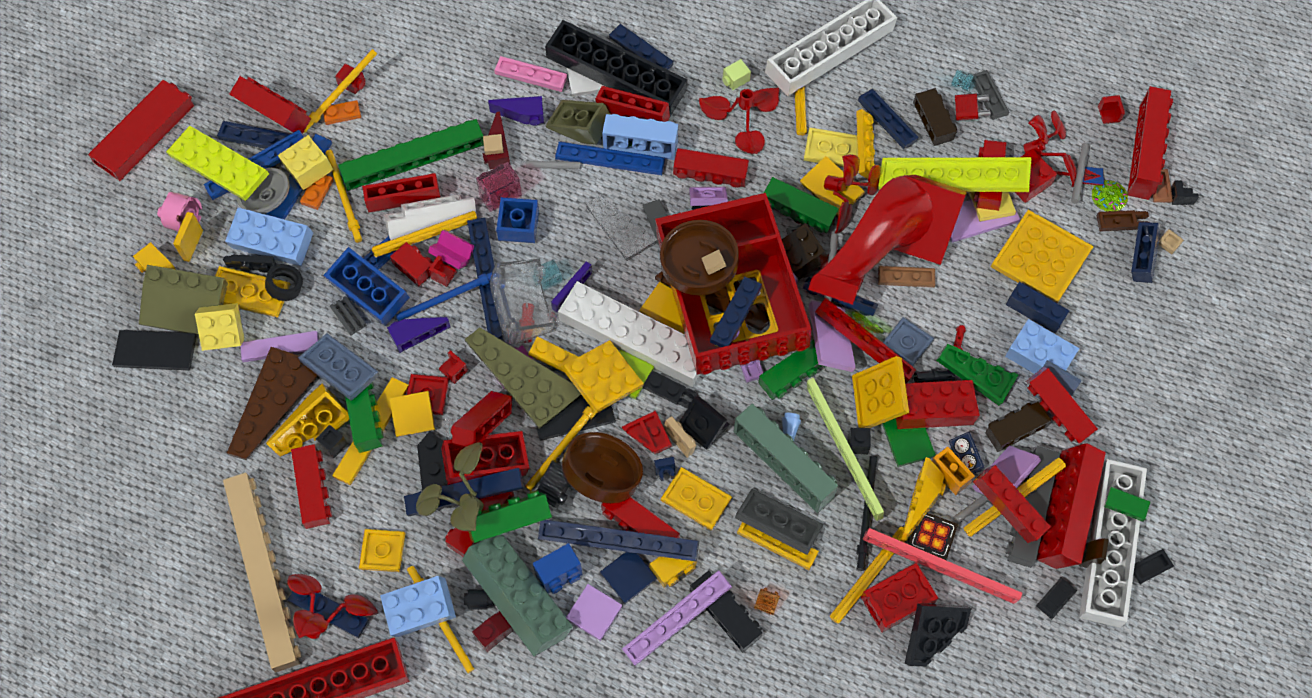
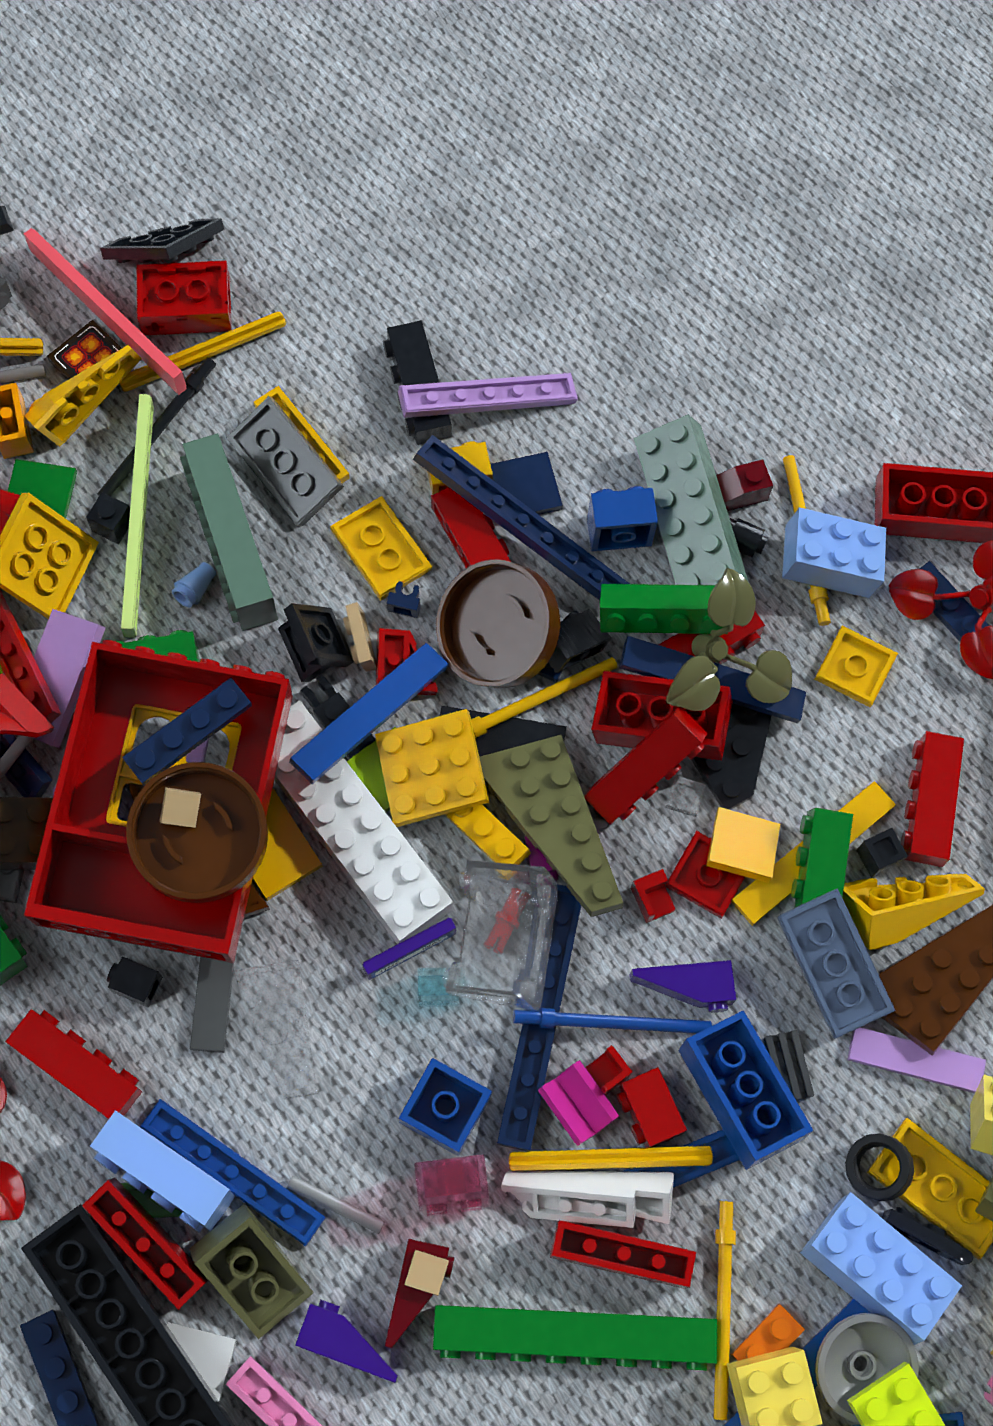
camera: 160 degrees left, 5 degrees up
(594, 612) = (593, 460): lavender tile -> none
(650, 388) = (368, 713): none -> blue tile
(707, 196) = (109, 1007): lavender tile -> none
(767, 601) = (357, 372): clear orange tile -> none

